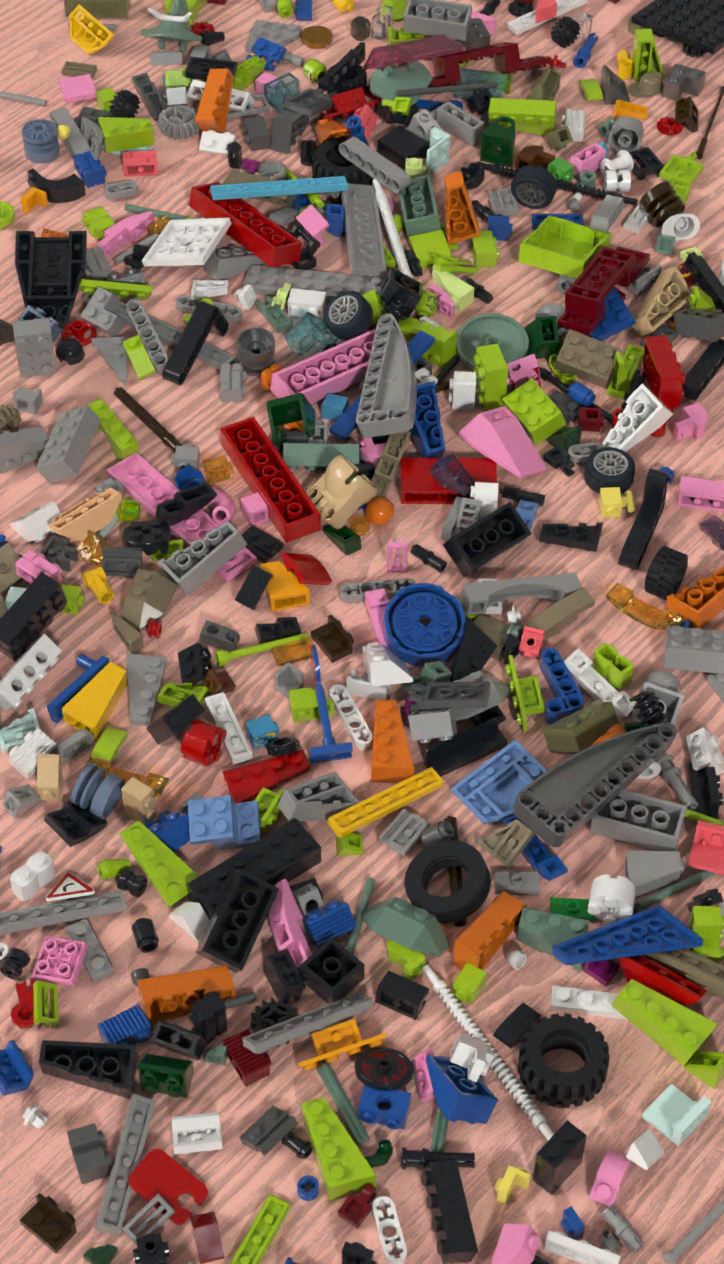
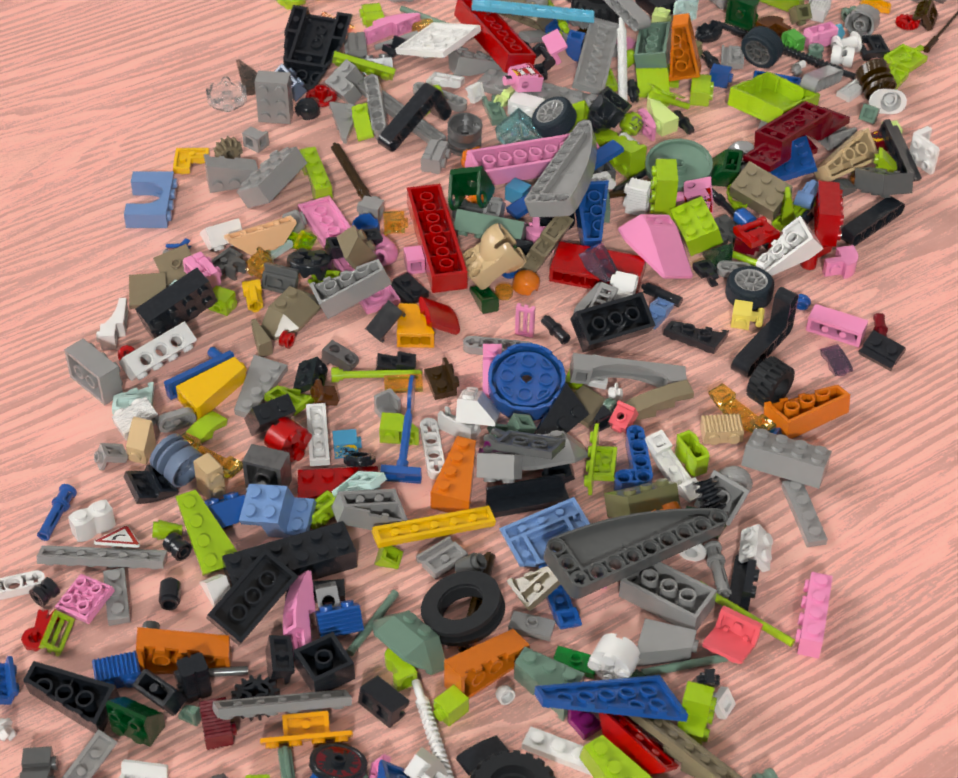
camera: 15 degrees right, 5 degrees down
(193, 776) = (267, 465): none -> flat silver brick
(197, 511) = (356, 247): none -> dark tan slope
(297, 272) = (524, 78): none -> bright pink torso
(297, 772) = (361, 481): none -> light aqua wing
(599, 439) = (754, 262): none -> lime bar
(602, 411) = (758, 236): none -> red plate
(632, 633) = (721, 429): none -> tan brick
(634, 353) = (807, 196): none -> medium blue piece

